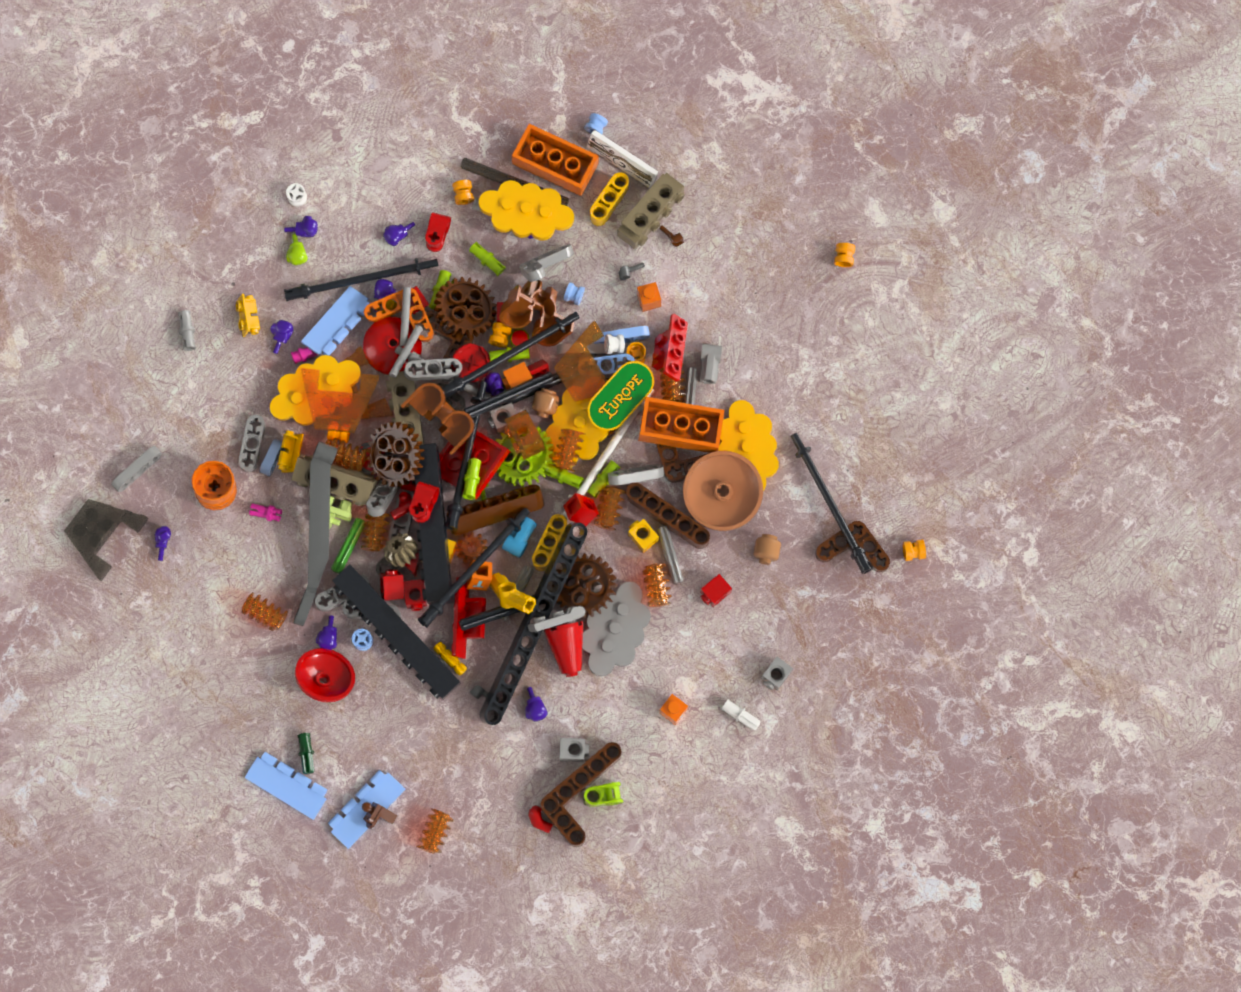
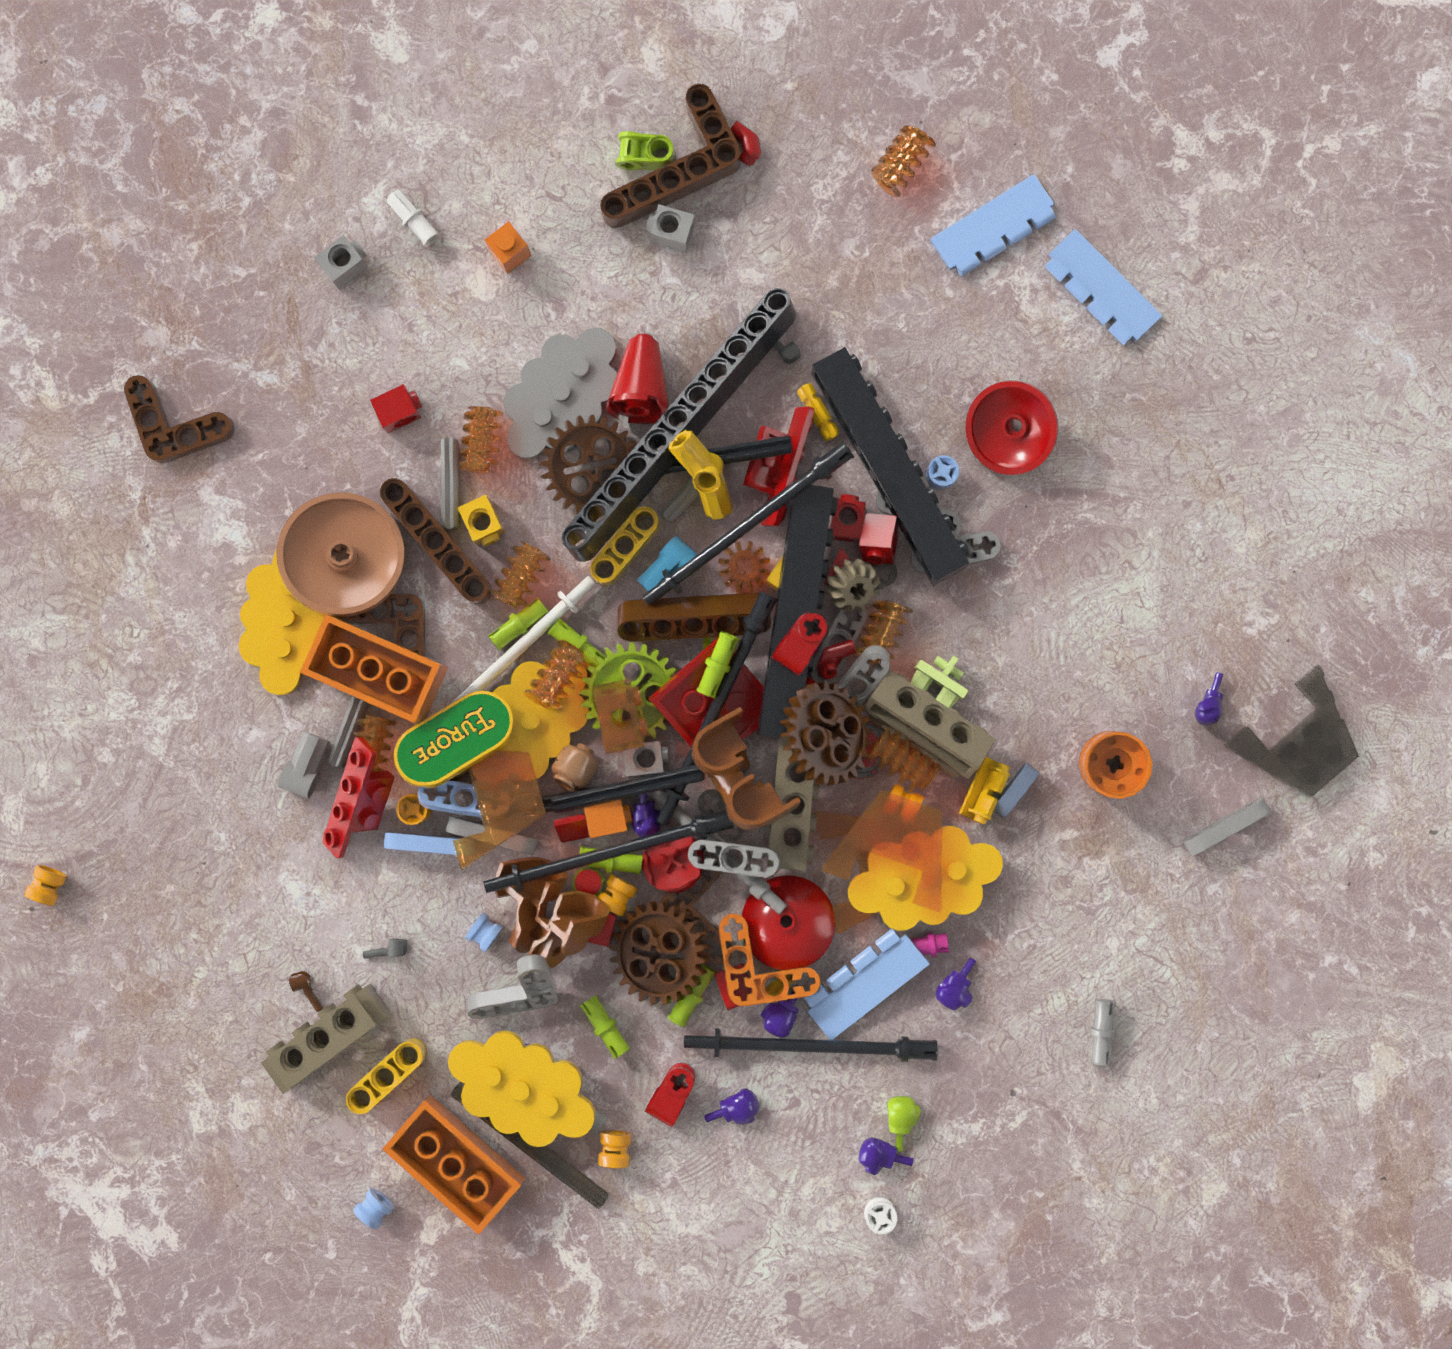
camera: 160 degrees left, 10 degrees up
(244, 456) = (1039, 847): light grey beam -> none
(246, 307) = (1002, 1045): yellow hinge -> none
(264, 613) = (1080, 549): clear orange piece -> none
(266, 512) = (1039, 704): dark pink pin -> none
(306, 753) = (1064, 325): dark green axle -> none
(318, 524) = (968, 657): dark grey piece -> none
(327, 637) = (993, 489): dark purple piece -> none
(348, 546) = (929, 623): bright green axle -> none
(375, 812) = (982, 209): reddish brown piece -> none
(405, 316) = (757, 958): light grey bar -> none
(405, 351) = (769, 899): light grey bar -> none
(481, 578) = (735, 513): orange brick -> none
(535, 707) = (710, 304): dark purple piece -> none
(559, 617) = (644, 411): light grey hinge -> none
(580, 509) = (563, 578): red brick -> none
(614, 344) = (441, 826): white wheel -> none
(622, 159) = (348, 1138): white tile -> none
(636, 474) = (453, 615): light grey beam -> none
(649, 296) = (368, 895): orange brick -> none
(767, 549) = (301, 450): medium nougat head -> none
(857, 553) = (167, 407): black bar -> none
(914, 550) = (83, 393): light orange wheel -> none

